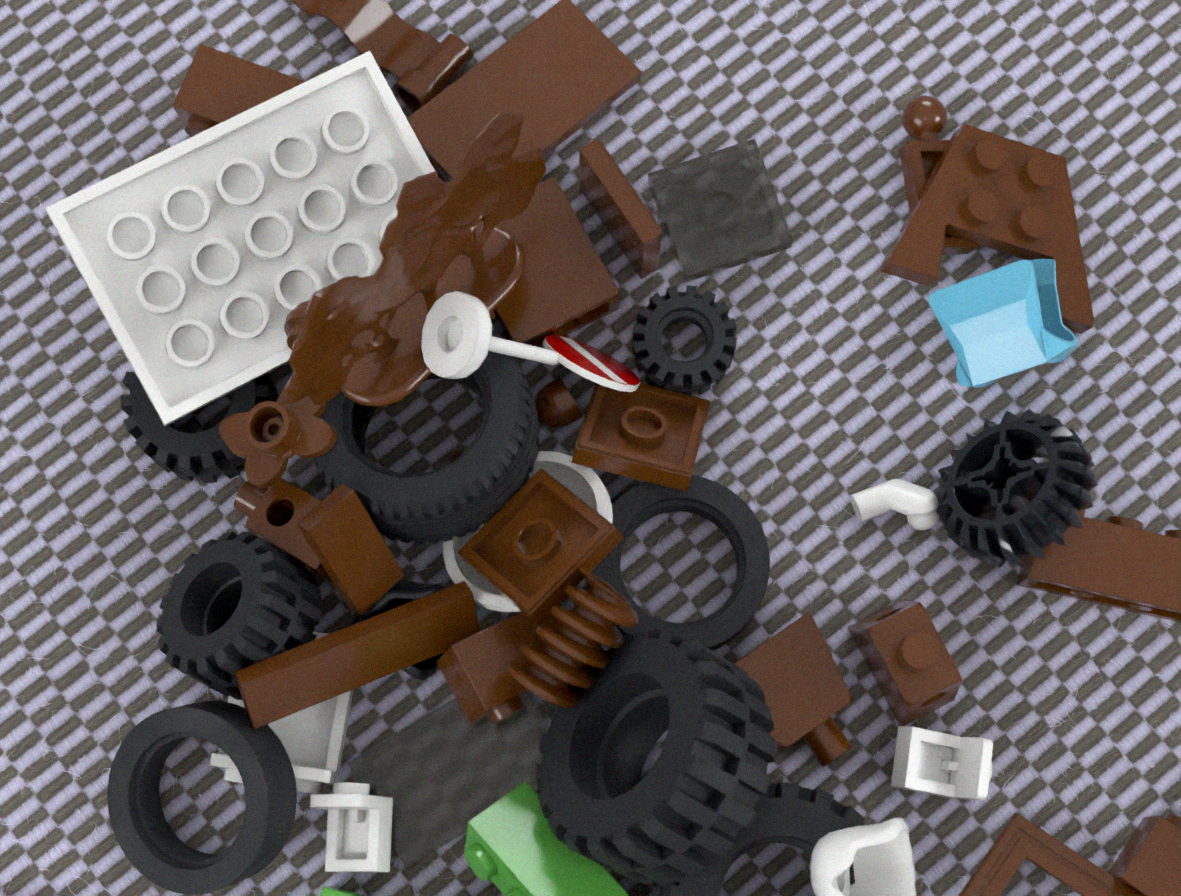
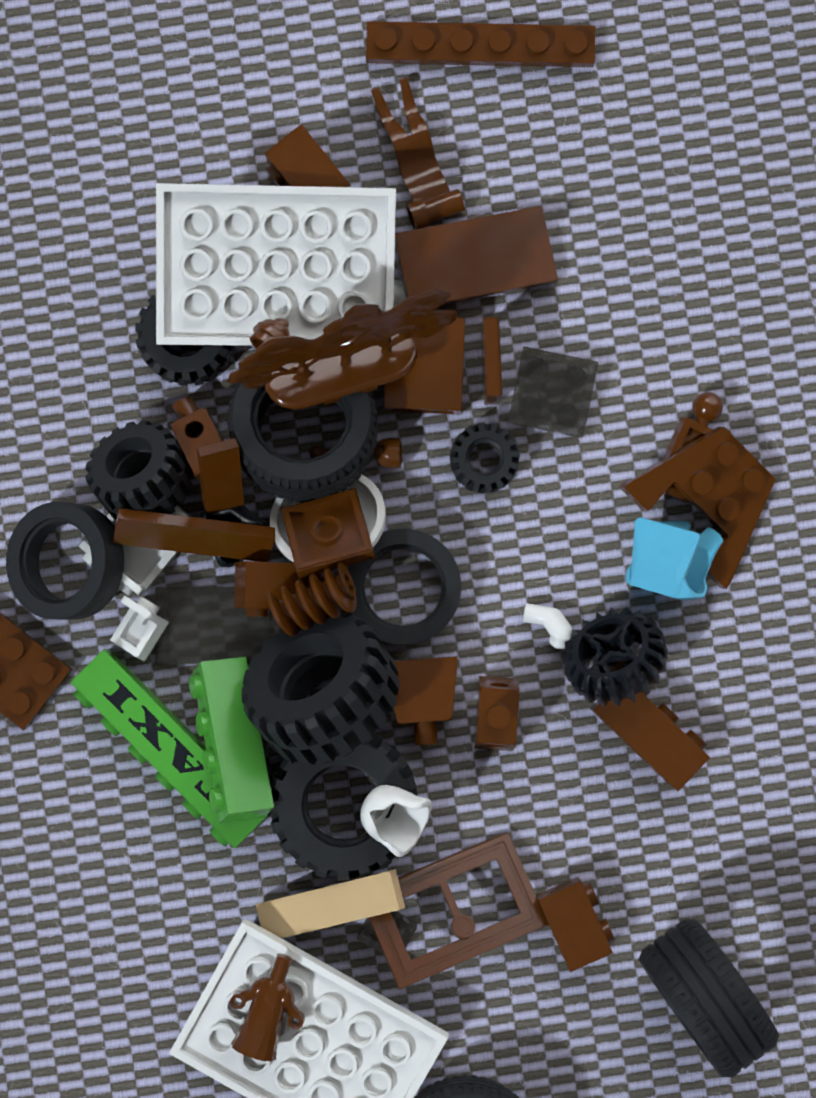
camera: 35 degrees right, 10 degrees up
(275, 433) = (211, 387): reddish brown animal -> none
(460, 335) = (347, 394): white piece -> none
(642, 434) = (426, 498): reddish brown tile -> none
(942, 764) = (481, 782): white bracket -> none

